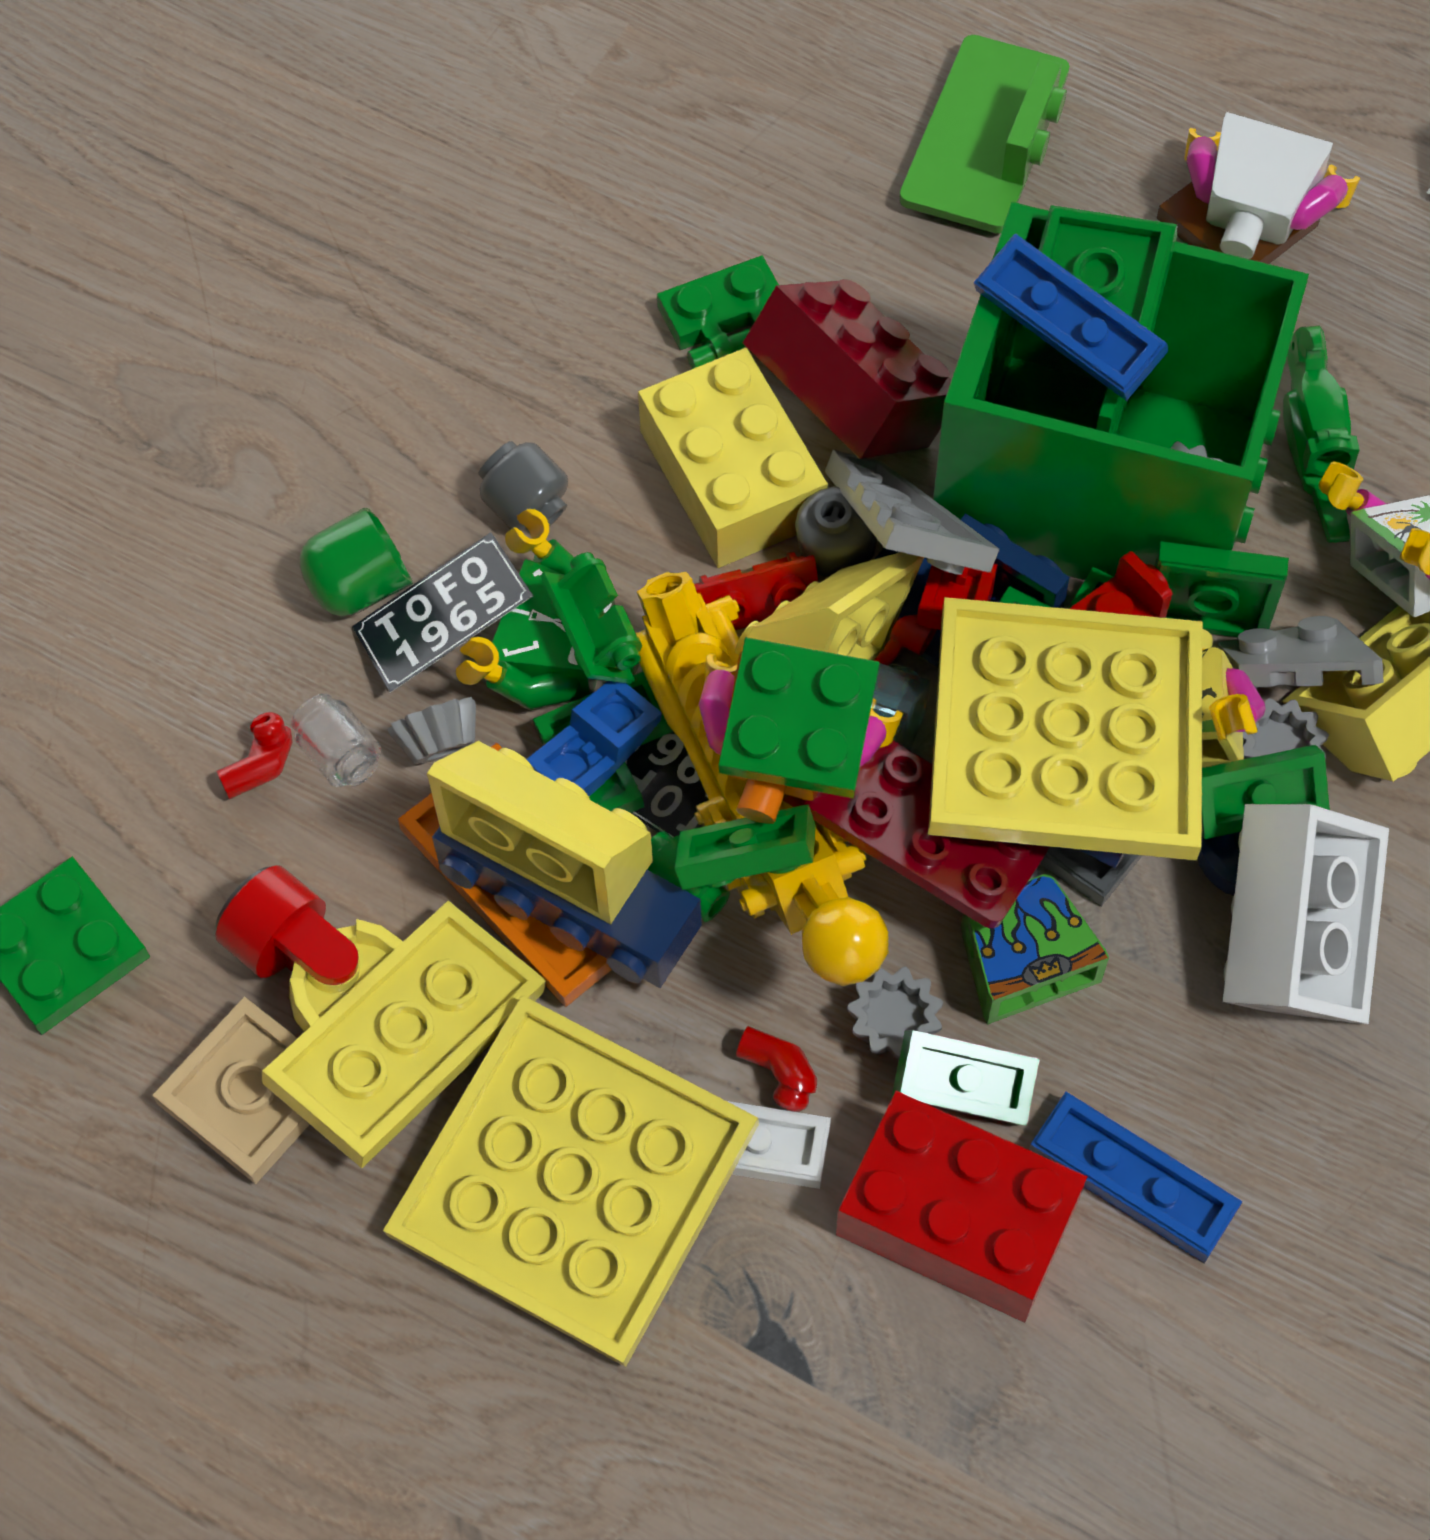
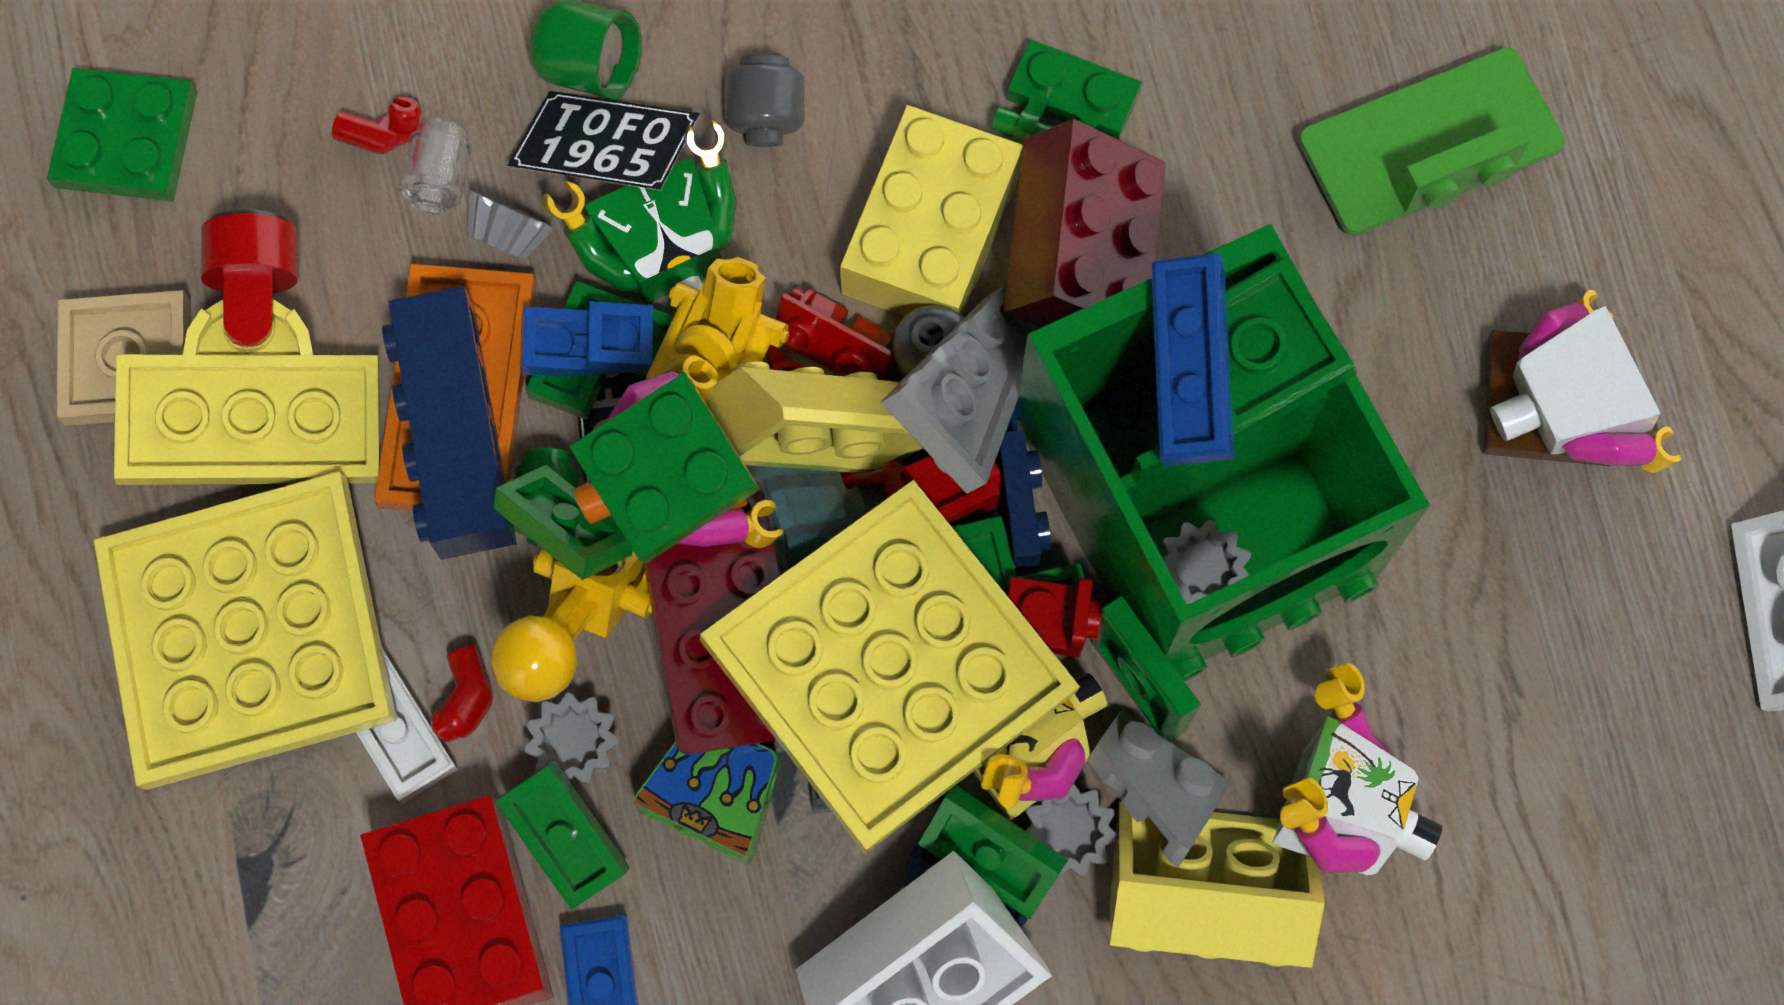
camera: 45 degrees right, 10 degrees up
(540, 827) = (443, 366): light yellow slope -> none
(601, 641) = (666, 249): green hinge -> none
(1318, 424) = (1403, 618): green animal -> none

